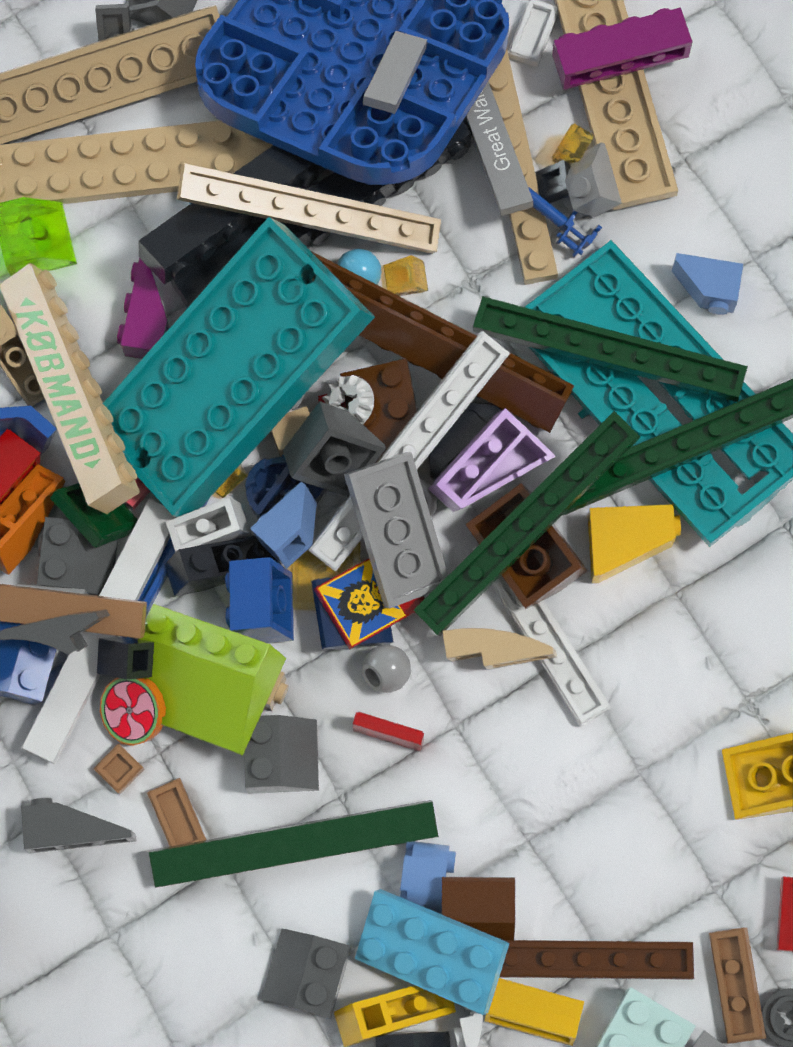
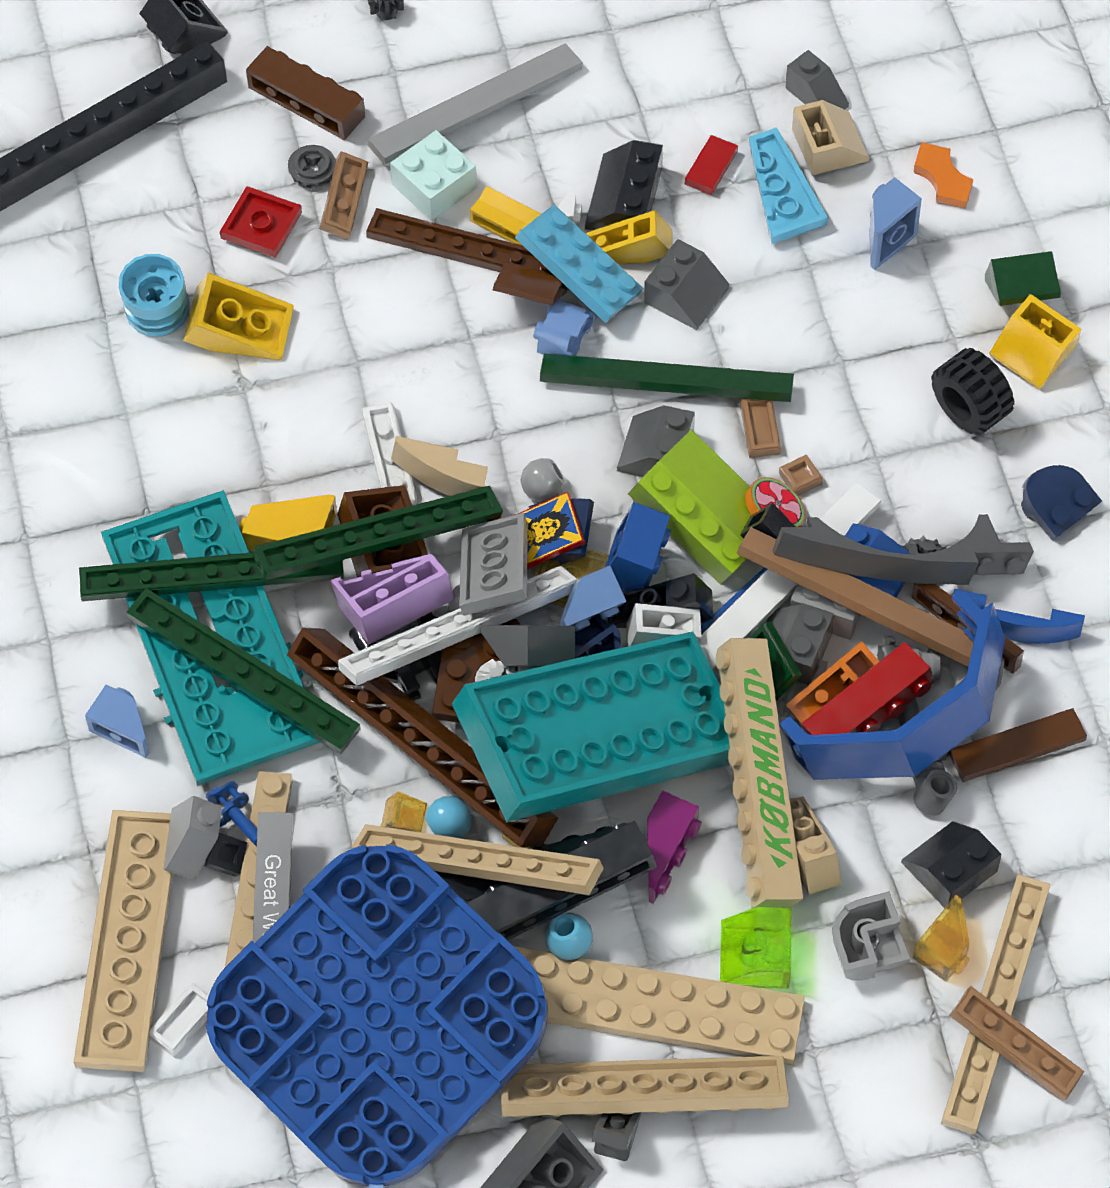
camera: 165 degrees left, 15 degrees down
(59, 827) = (857, 436): dark grey slope -> none
(388, 731) = (558, 436): red tile -> none
(395, 72) = (345, 953): light grey tile -> none
(573, 145) = (195, 882): clear yellow slope -> none
(621, 47) = (106, 950): magenta brick -> none

